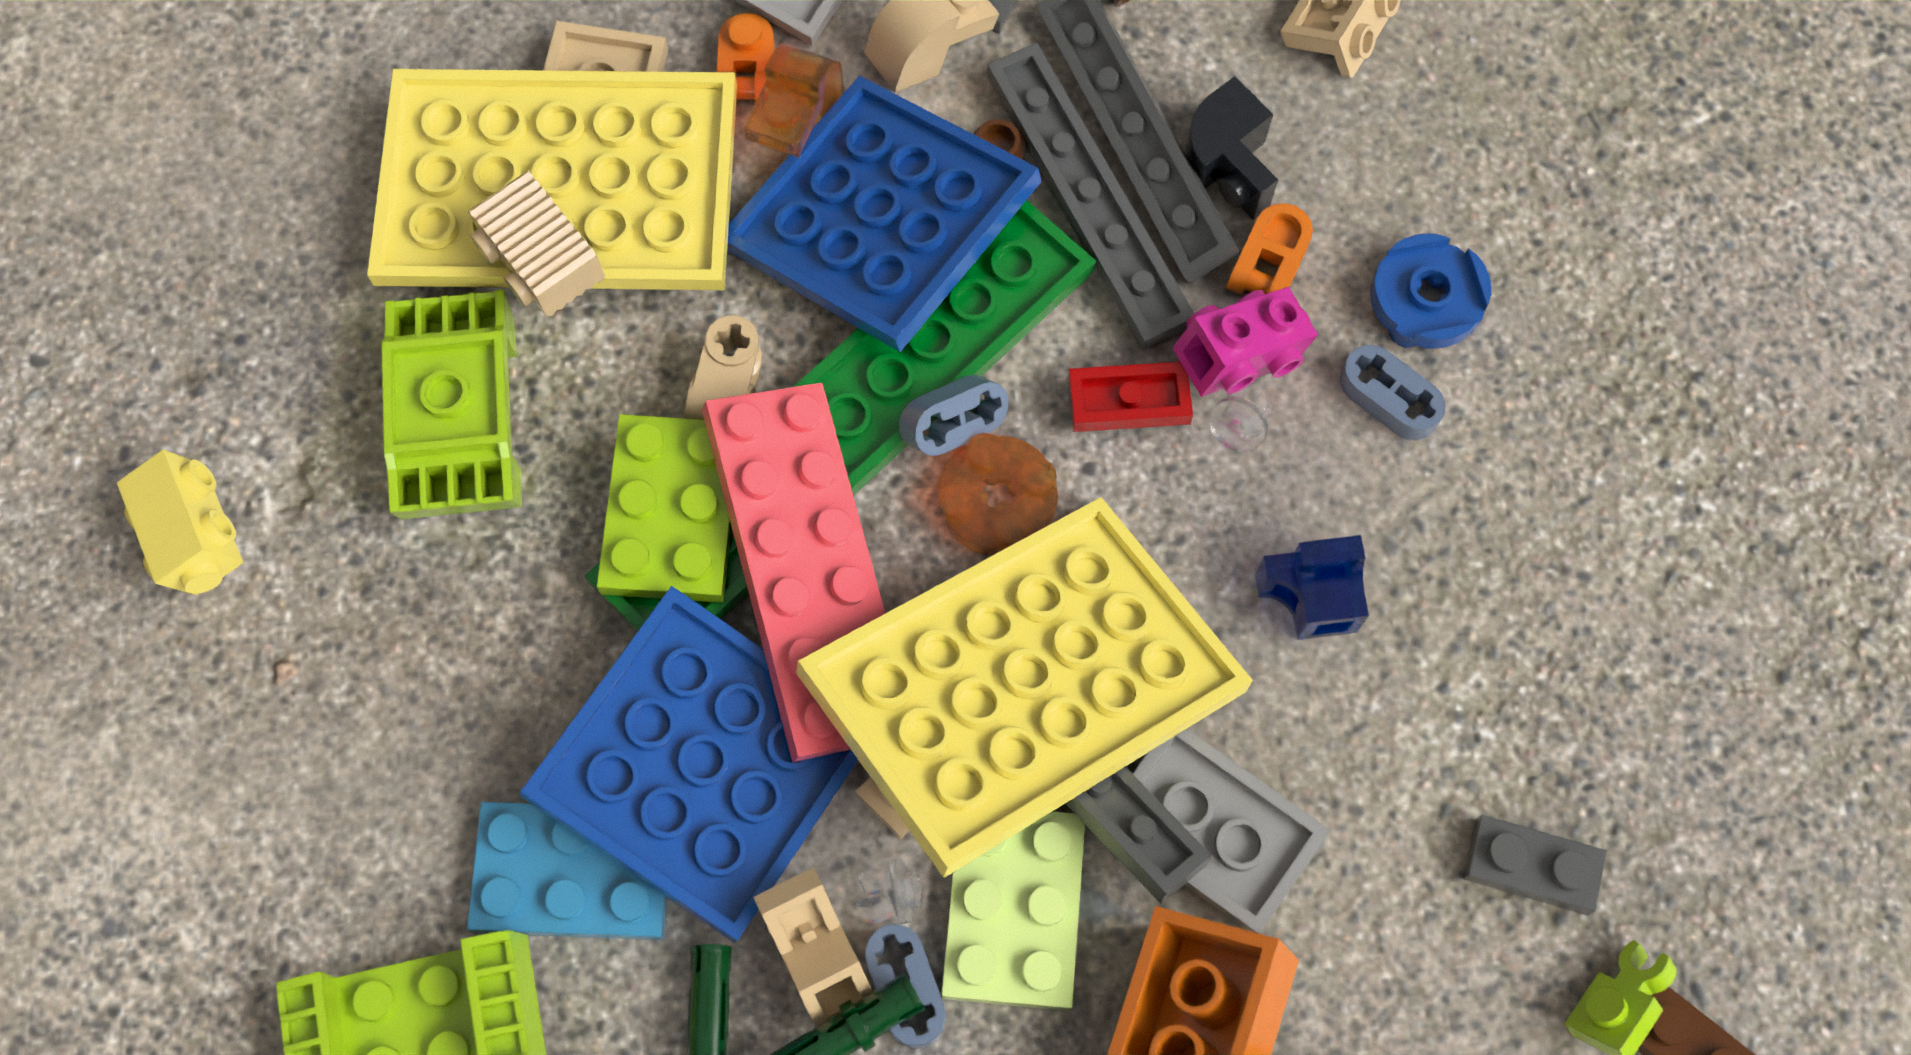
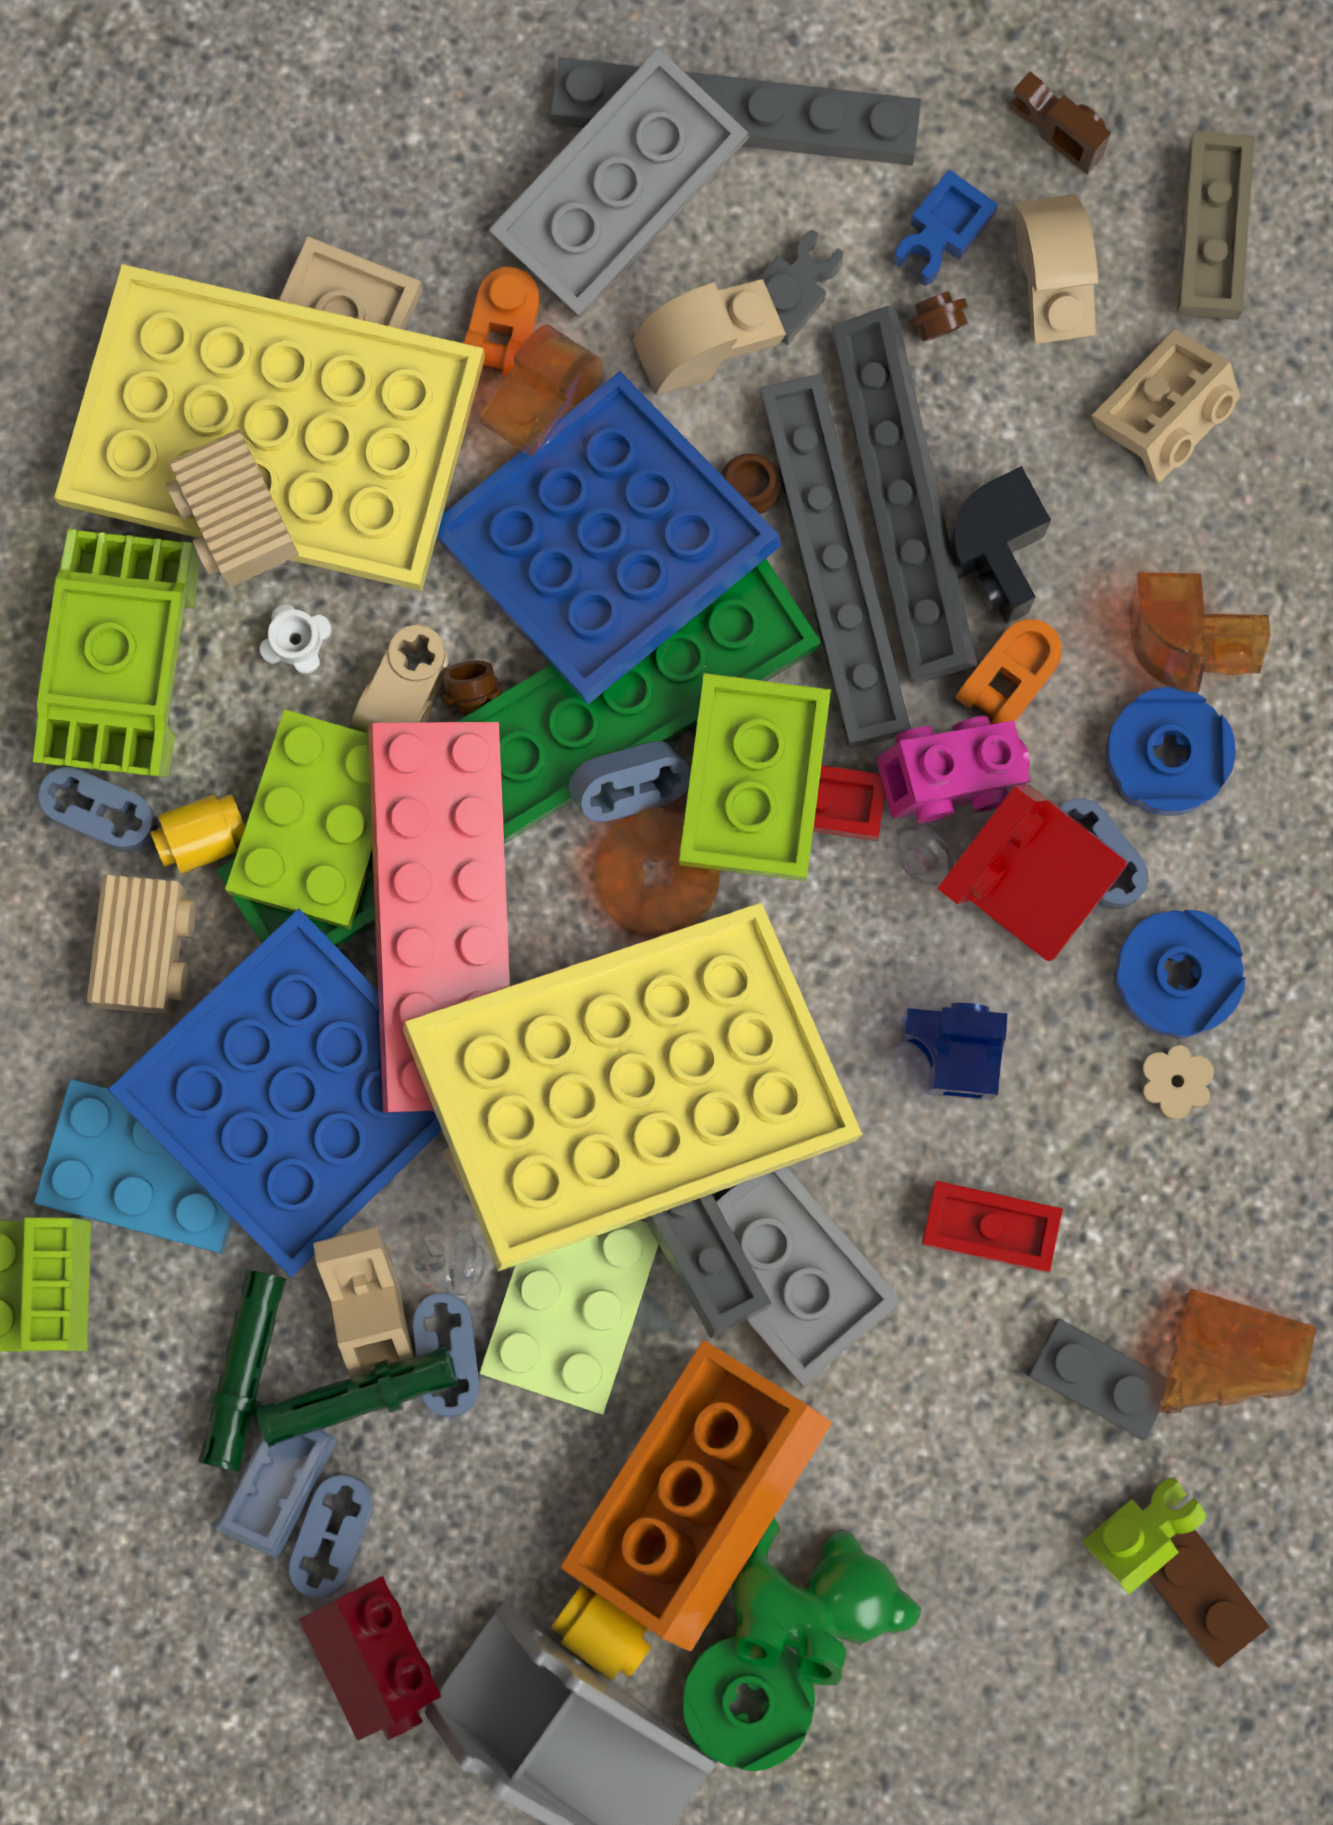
camera: 15 degrees right, 10 degrees up
(458, 562) = (103, 796): none -> sand blue beam
(524, 661) = (140, 945): none -> tan brick
(561, 547) = (199, 832): none -> yellow brick
(616, 344) = (284, 624): none -> white plate
(786, 365) = (470, 685): none -> reddish brown plate
(1069, 384) = (754, 777): none -> lime plate
(1344, 414) = (1034, 871): none -> red bracket
(1393, 743) = (991, 1226): none -> red plate
(1417, 193) = (1182, 642): none -> clear orange brick
(1489, 511) = (1216, 969): none -> blue plate
(1532, 565) = (1194, 1076): none -> tan plant
(1653, 810) = (1234, 1354): none -> clear orange wing

